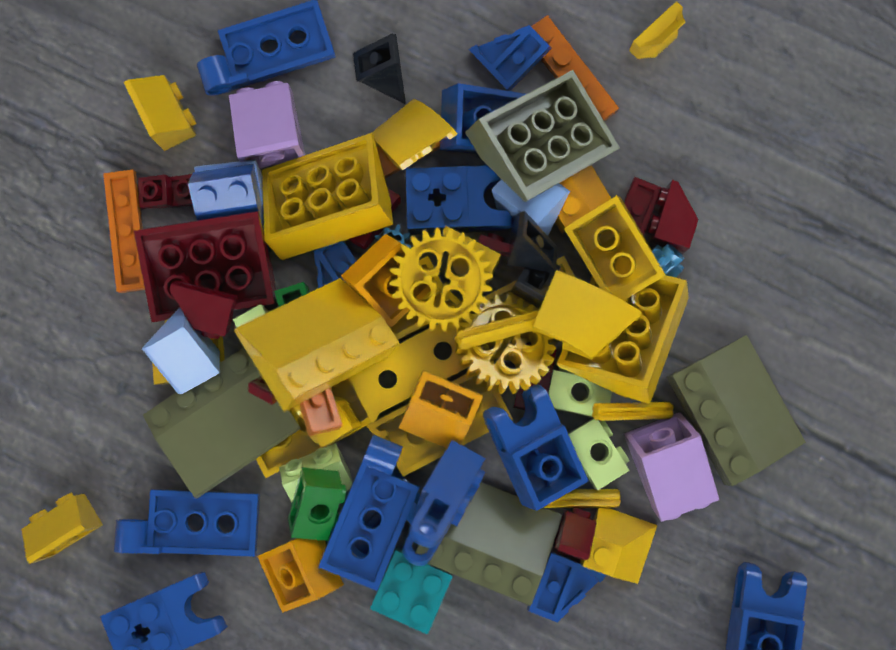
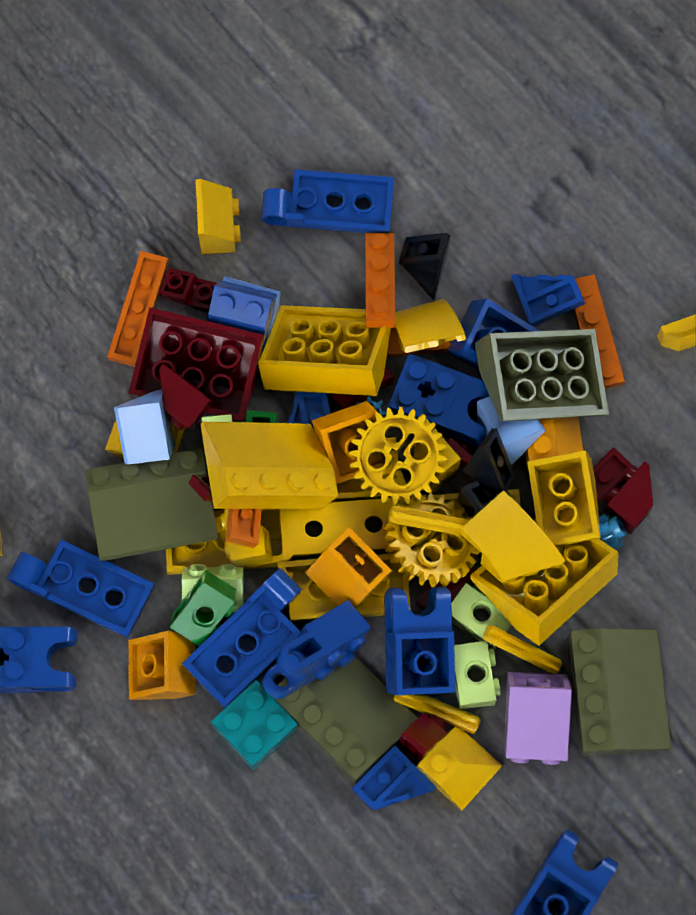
camera: 20 degrees right, 10 degrees down
(266, 124) = (302, 267): lavender slope -> none
(347, 107) = (380, 280): none -> orange plate

